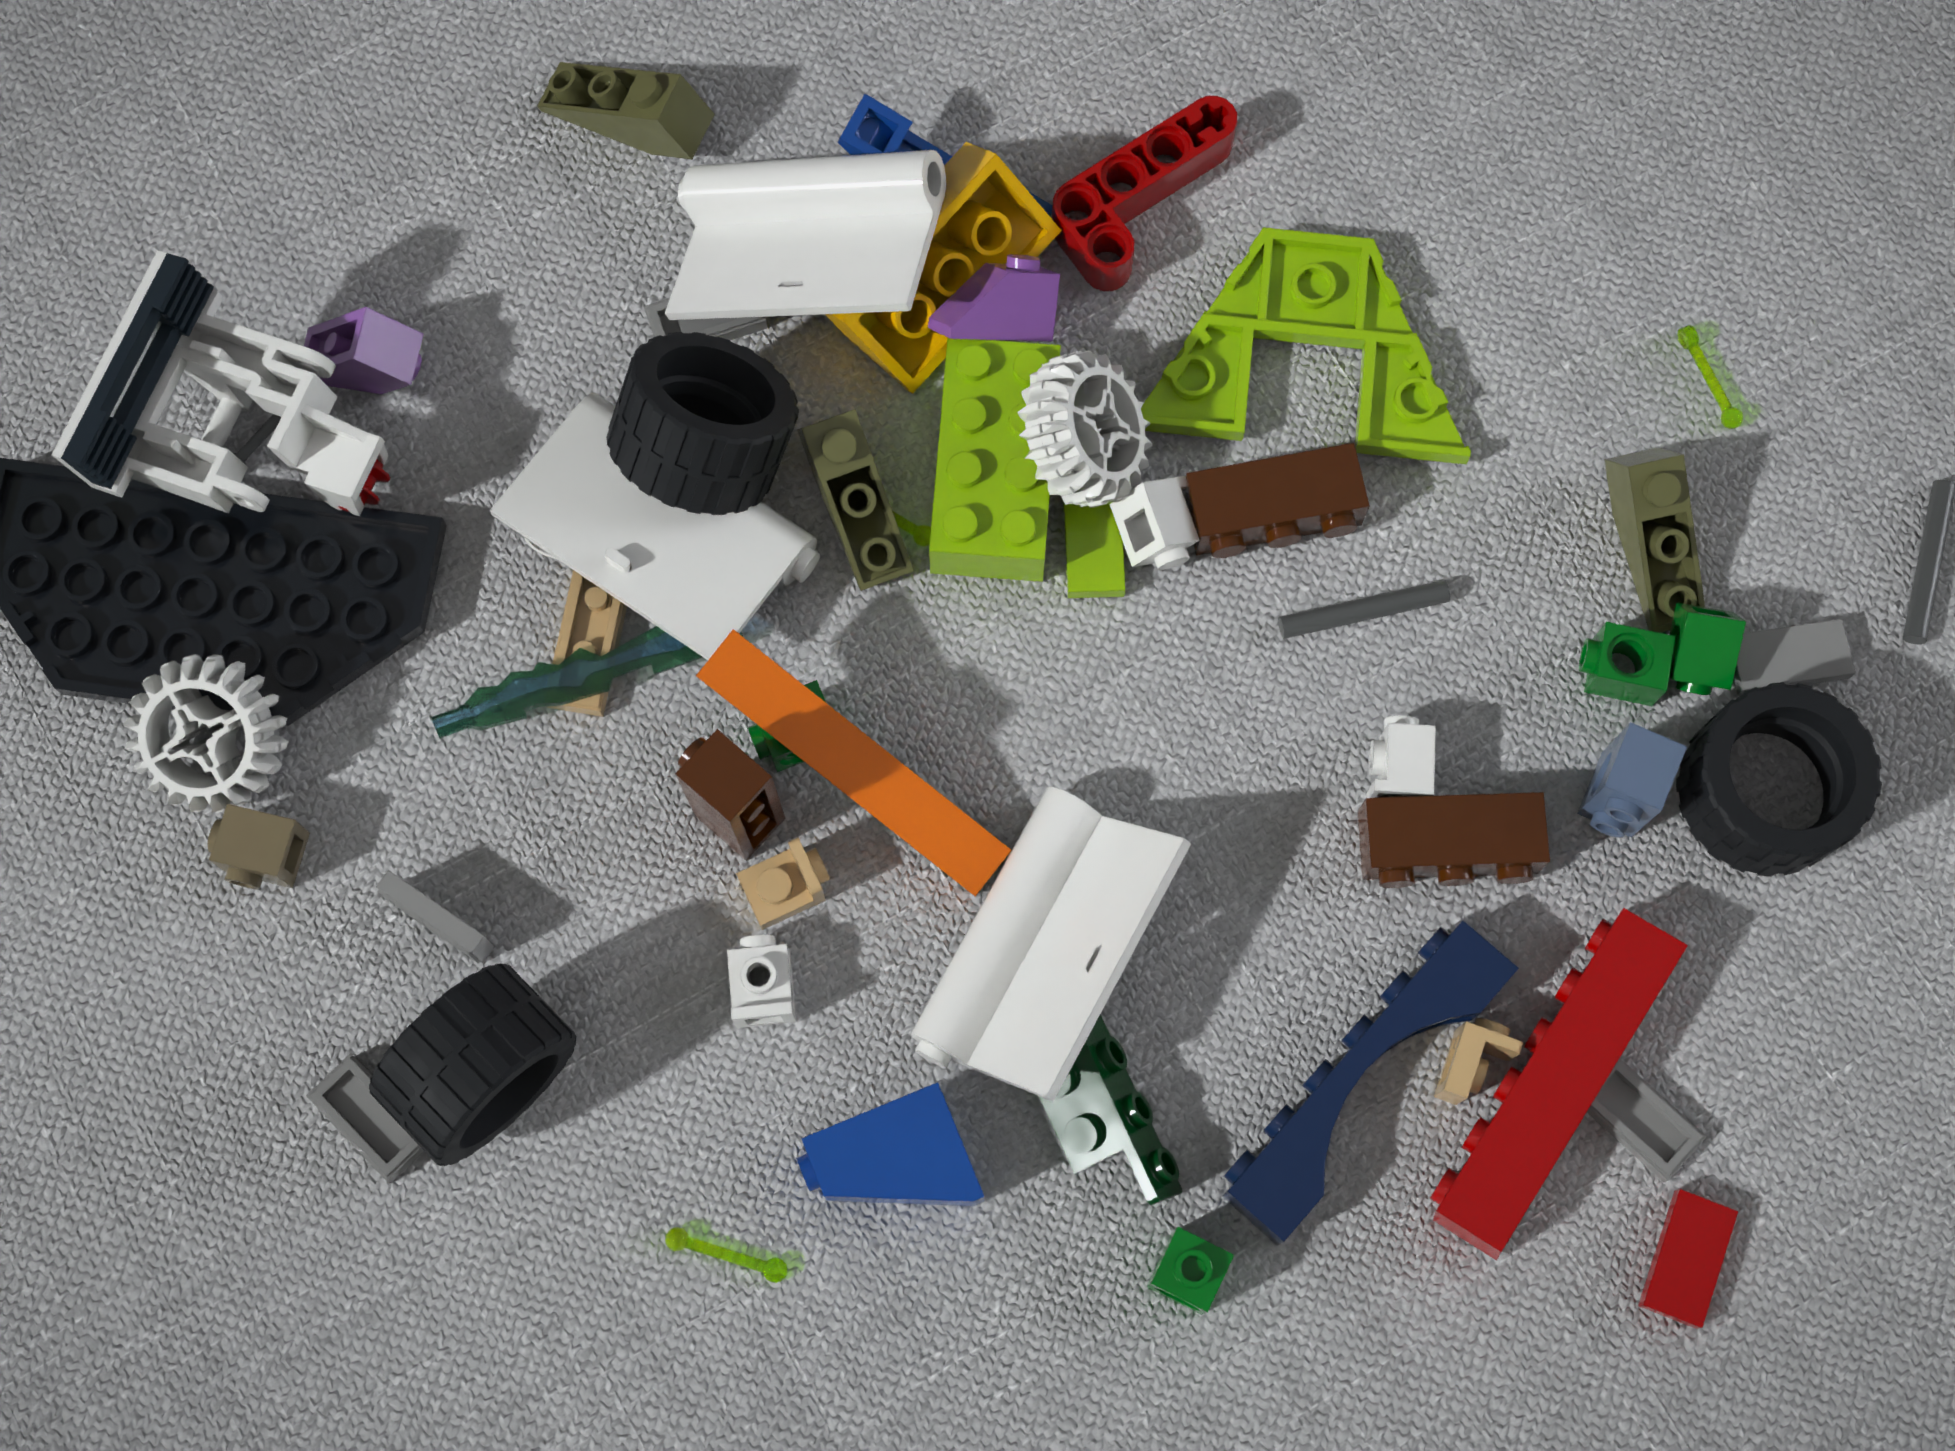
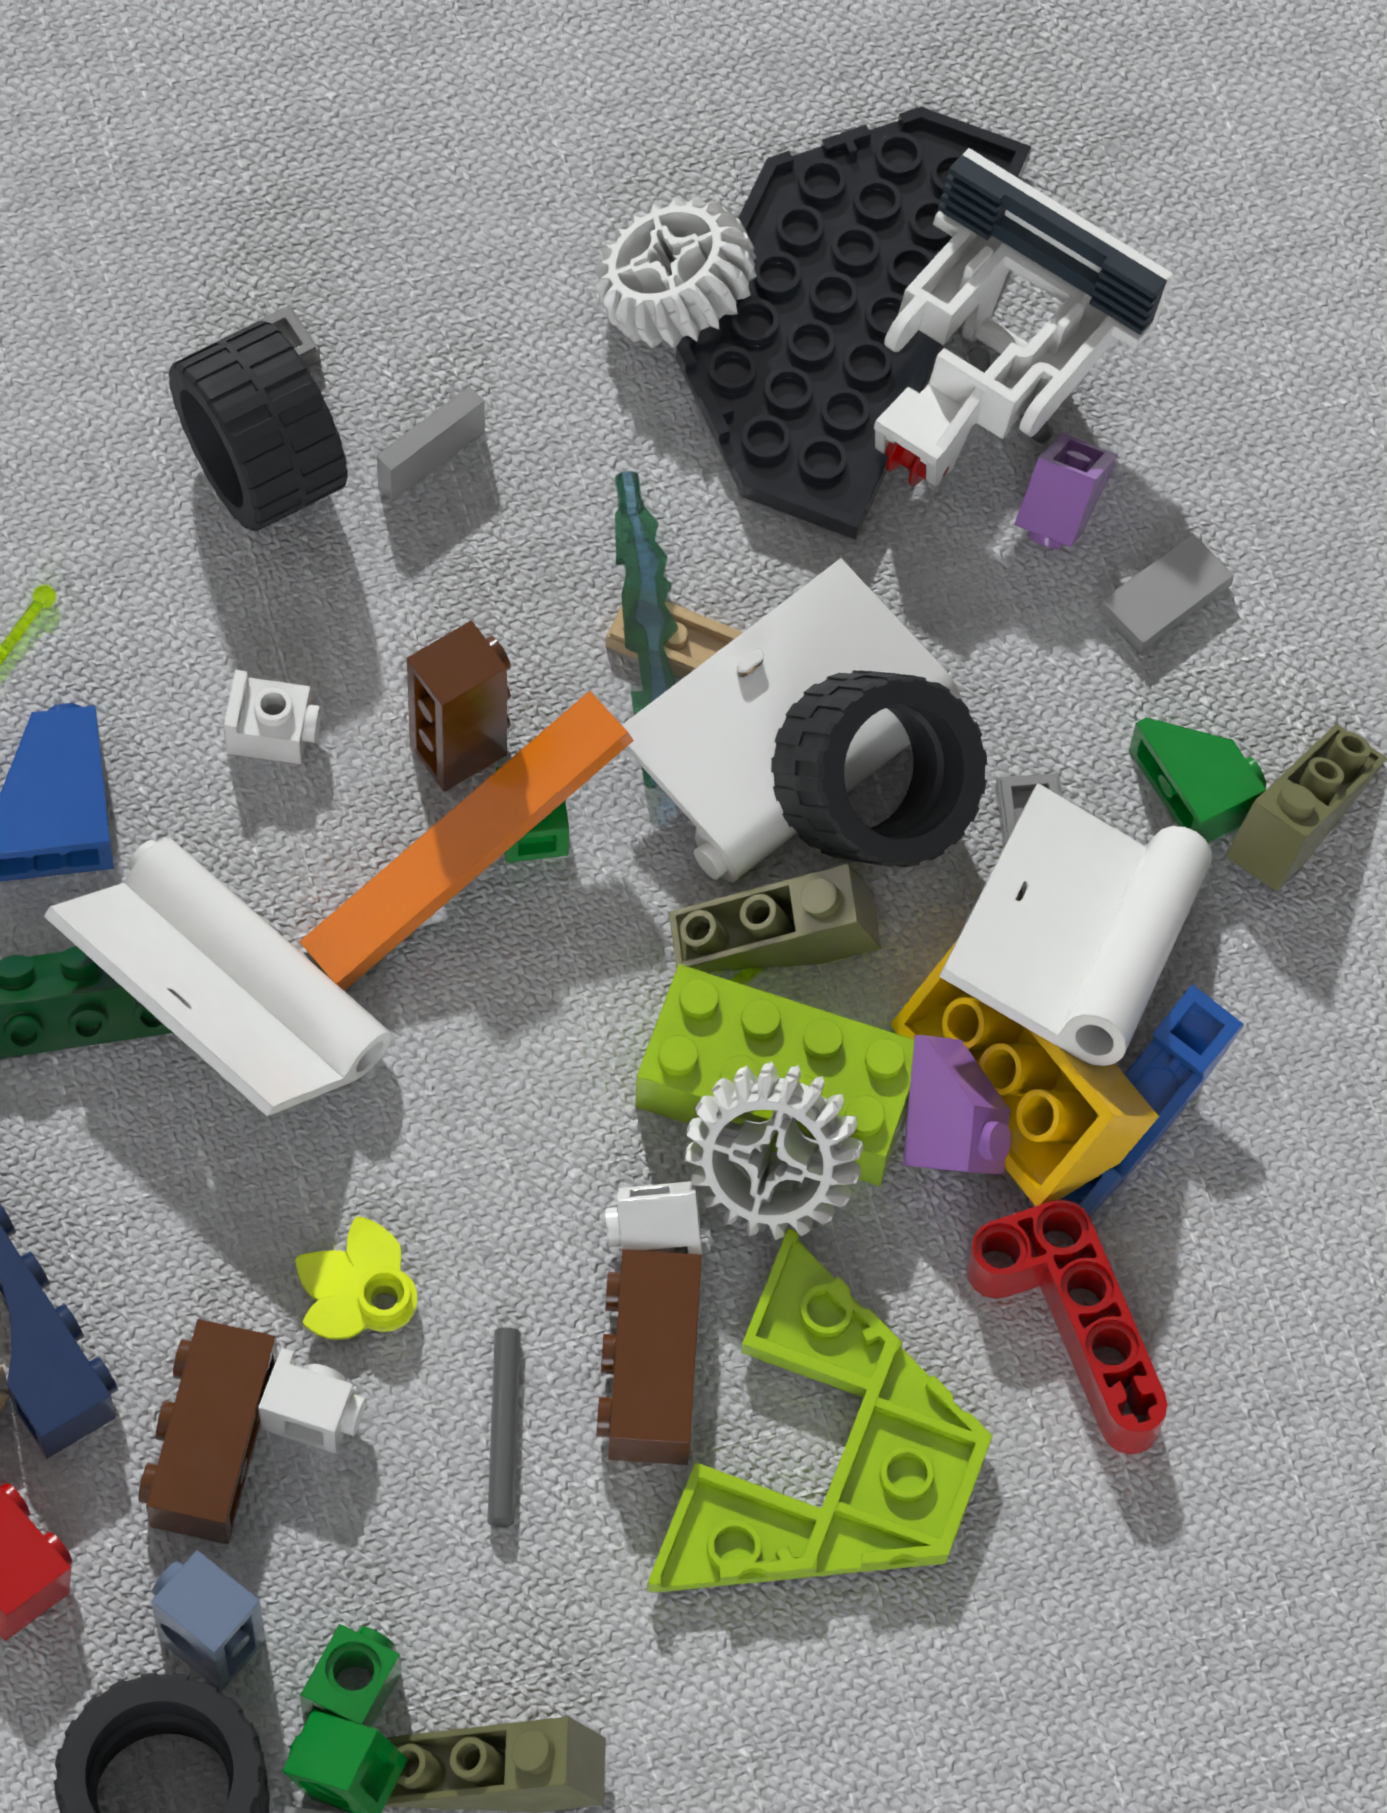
camera: 100 degrees right, 10 degrees down
(257, 847) = (550, 304): dark tan brick -> none
(442, 259) = (1166, 593): none -> light grey tile
(626, 191) = (1197, 776): none -> green slope
(784, 884) = (369, 767): tan bracket -> none
(1093, 552) = (644, 1156): lime tile -> none
(1275, 768) = (350, 1281): none -> neon yellow plate

